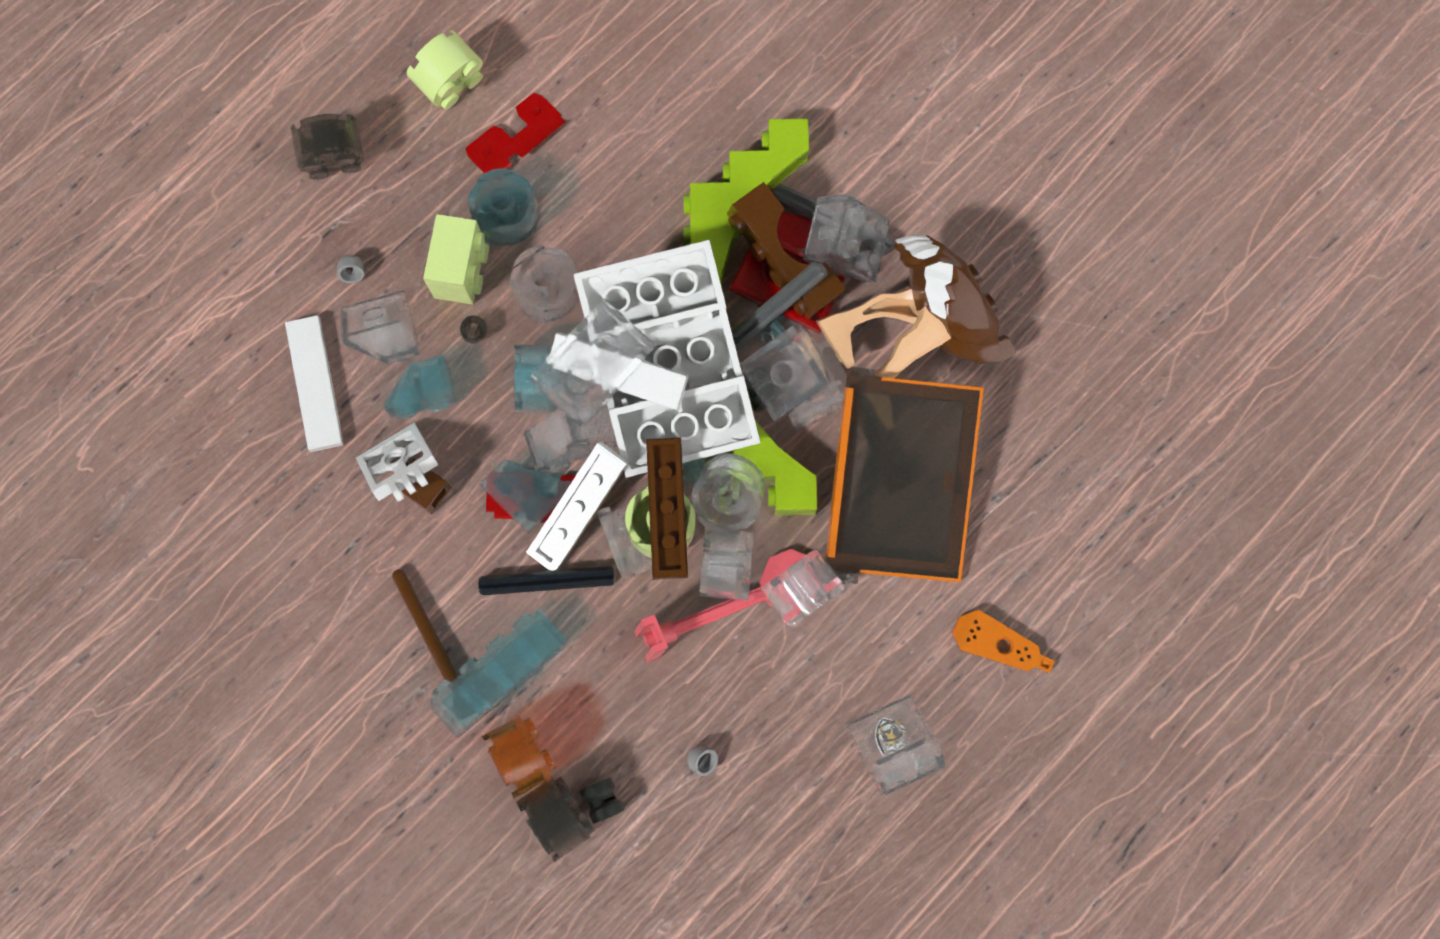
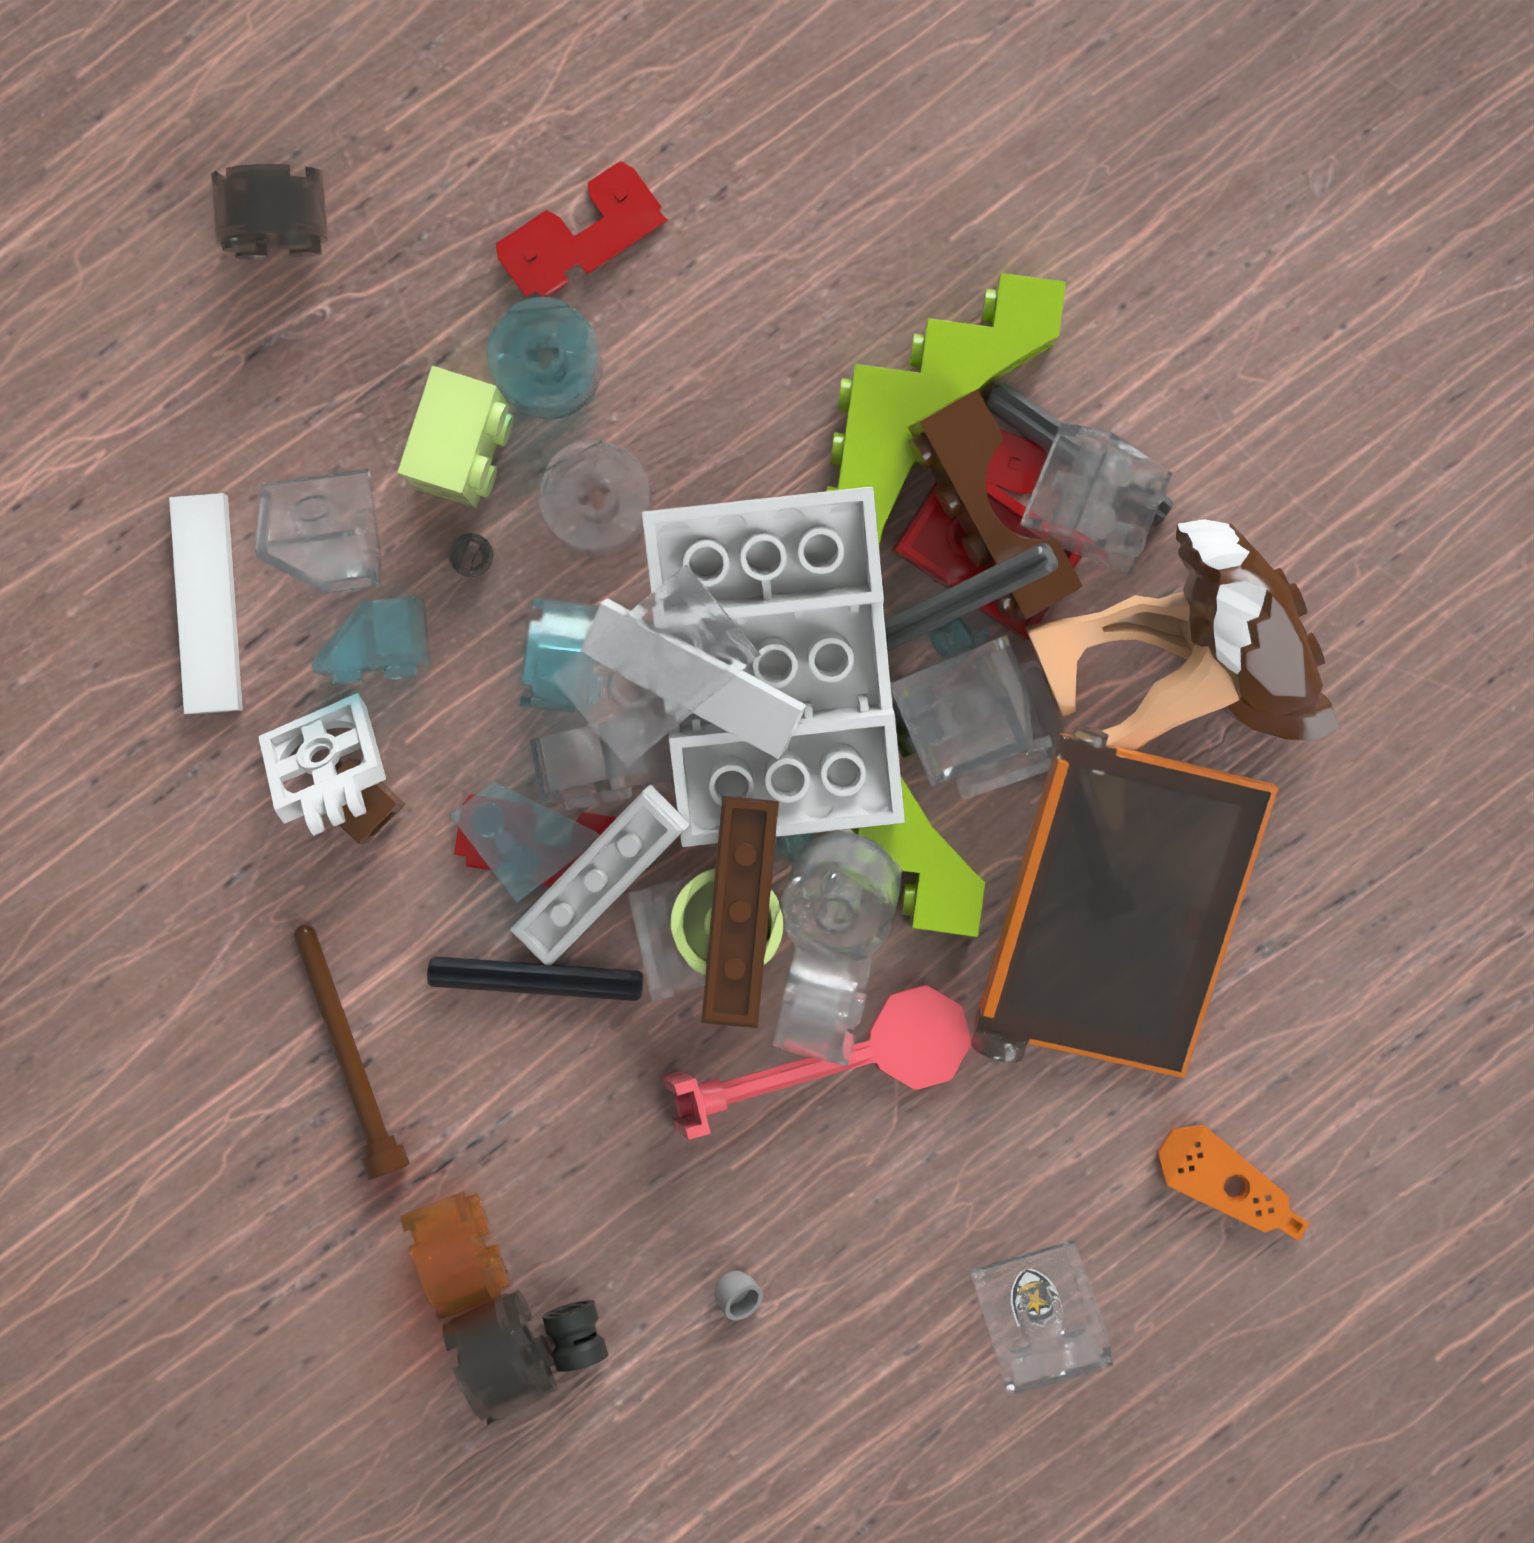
camera: 10 degrees right, 10 degrees up
(357, 269) = (284, 422): light grey hinge -> none
(445, 69) = (480, 105): yellowish green brick -> none
(497, 673) = (439, 1121): clear light blue brick -> none
(803, 588) = (936, 1063): clear brick -> none

